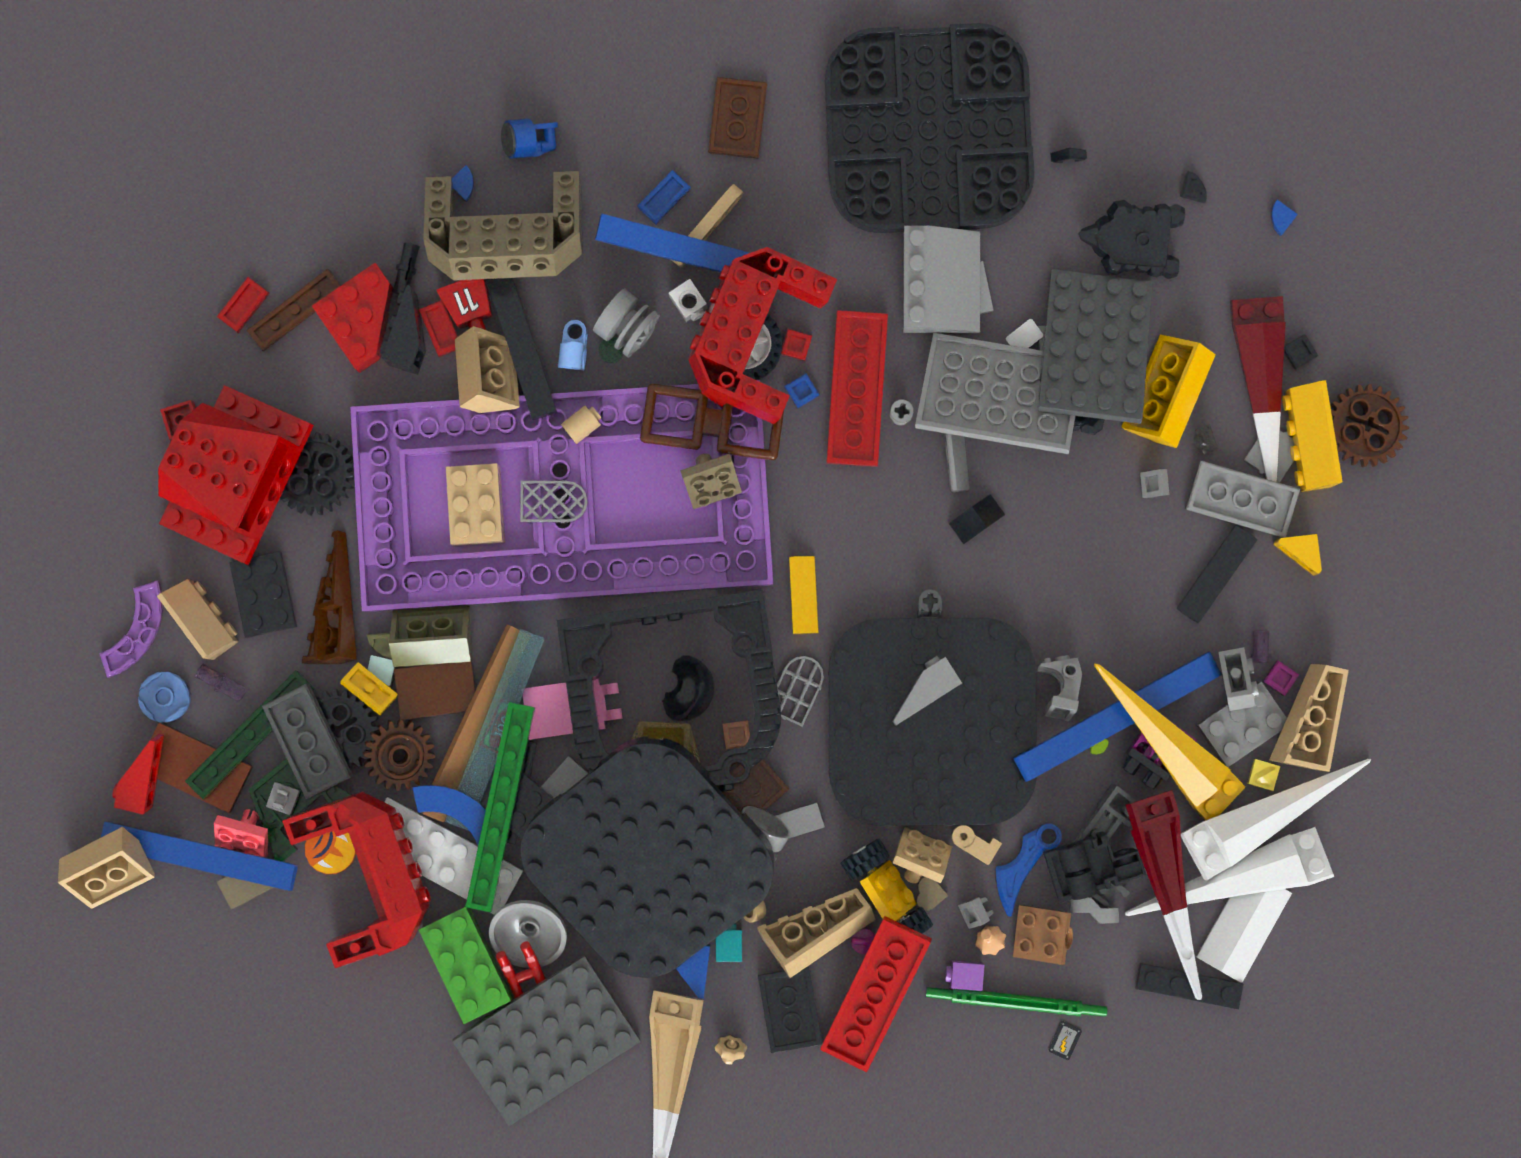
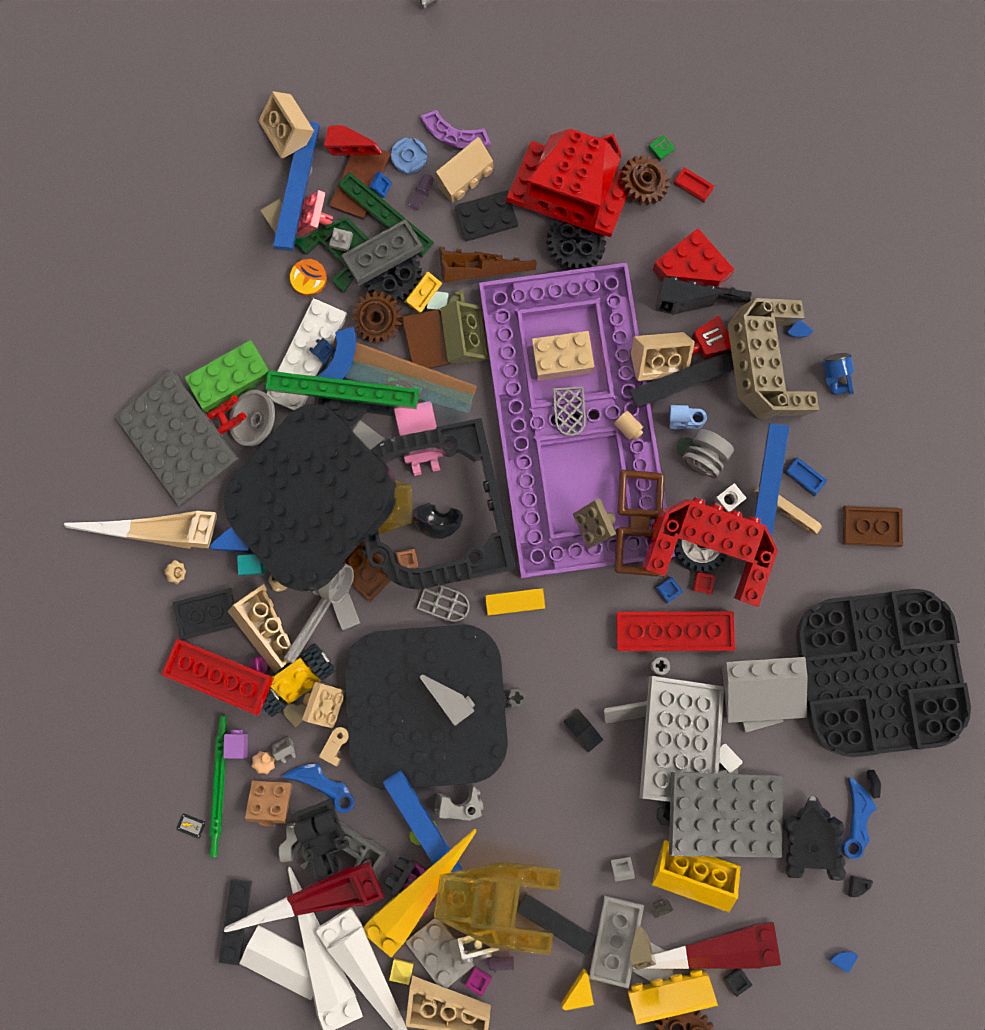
camera: 90 degrees right, 5 degrees down
(185, 343) = (661, 148): none -> green tile
(205, 739) = (380, 184): none -> blue tile
(239, 385) = (638, 169): none -> reddish brown gear
(292, 311) = (691, 217): reddish brown tile -> none
(386, 866) = (296, 313): red wedge -> none
(439, 327) = (690, 322): red tile -> none
(441, 831) = (322, 350): none -> dark blue tile
(823, 872) = (307, 631): none -> light grey axle
(1098, 173) = (862, 808): none -> blue piece
(1184, 657) = (485, 904): none -> clear yellow wedge
(1258, 468) = (641, 952): none -> dark tan tile

